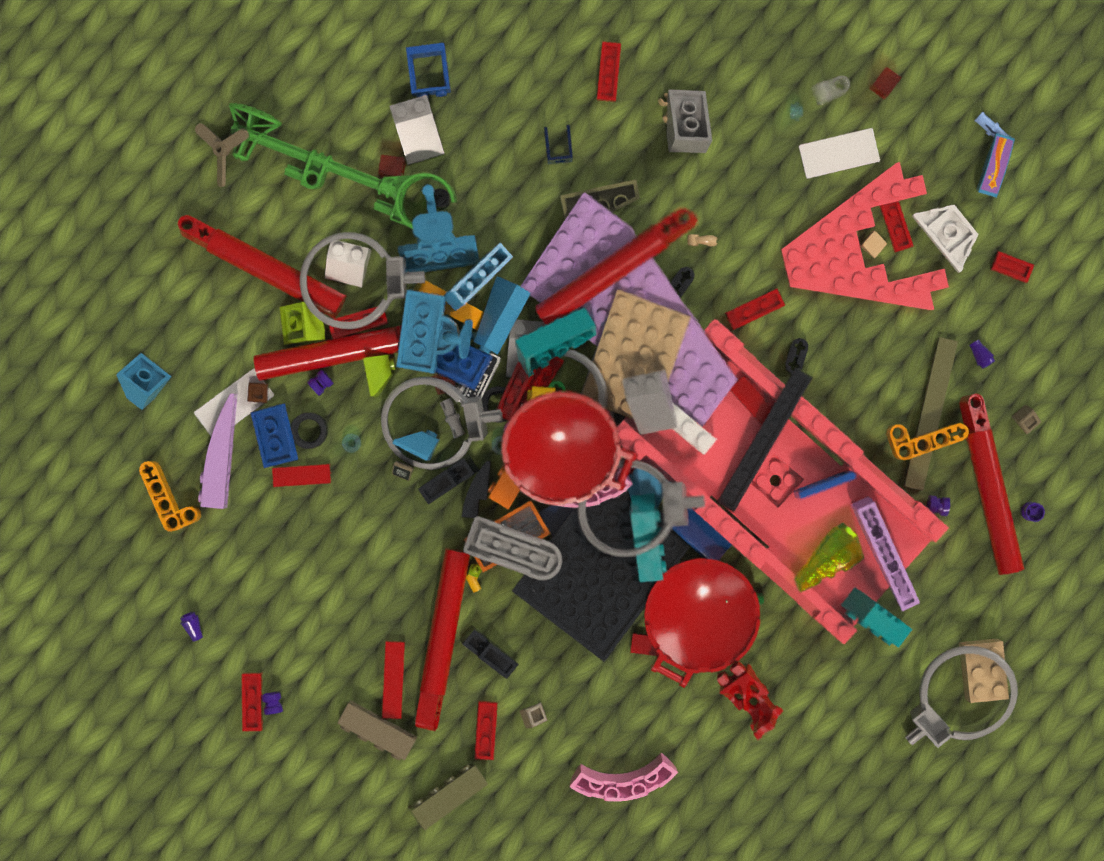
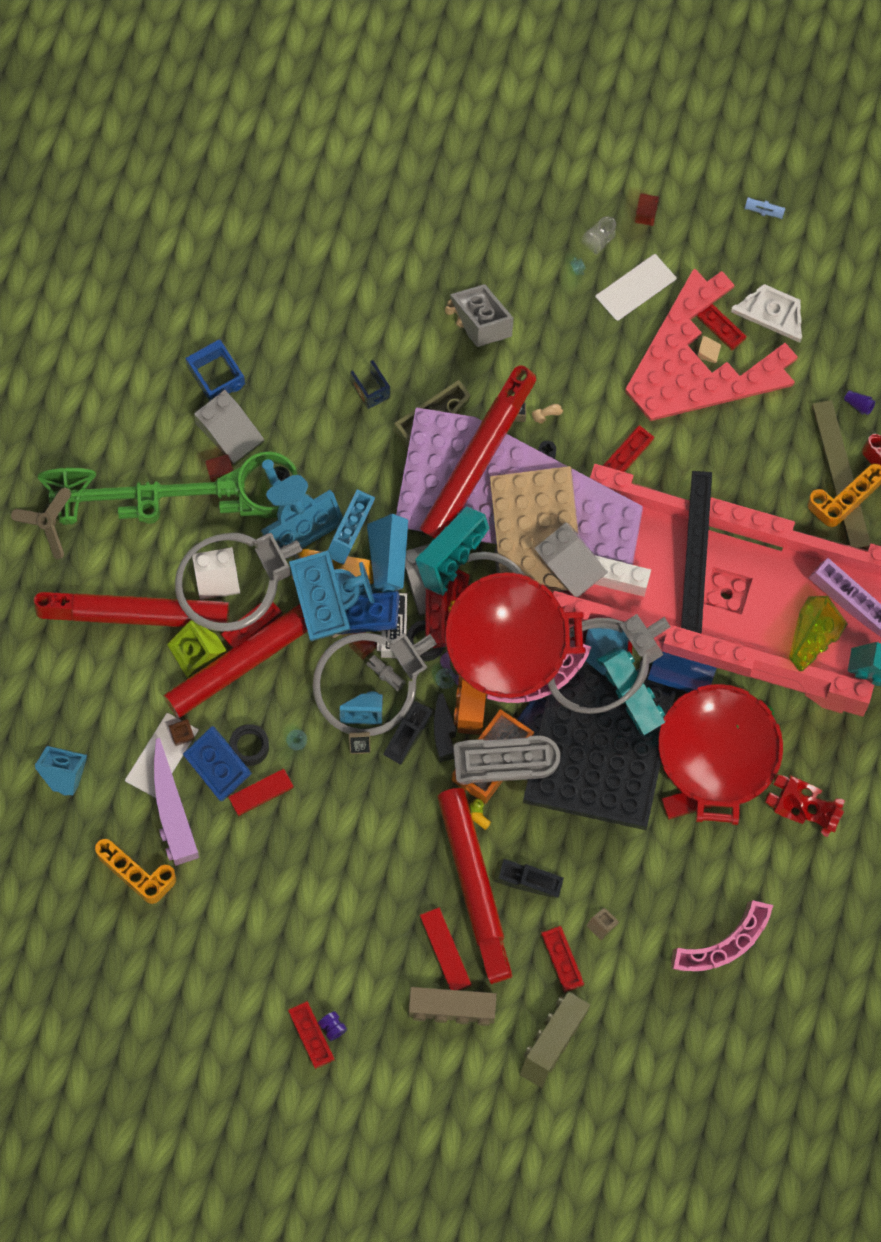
camera: 25 degrees left, 20 degrees down
(191, 624) = (214, 985): dark purple cone -> none
(324, 380) = (240, 694): dark purple wheel -> none
(378, 373) = (293, 658): lime slope -> none
(609, 71) = (386, 304): red plate -> none
(751, 399) = (665, 526): red tile -> none
(792, 354) = (683, 477): black beam -> none
(824, 484) = (773, 567): blue tile -> none
(995, 165) = (784, 235): slope -> none
(1012, 267) = (846, 317): red tile -> none

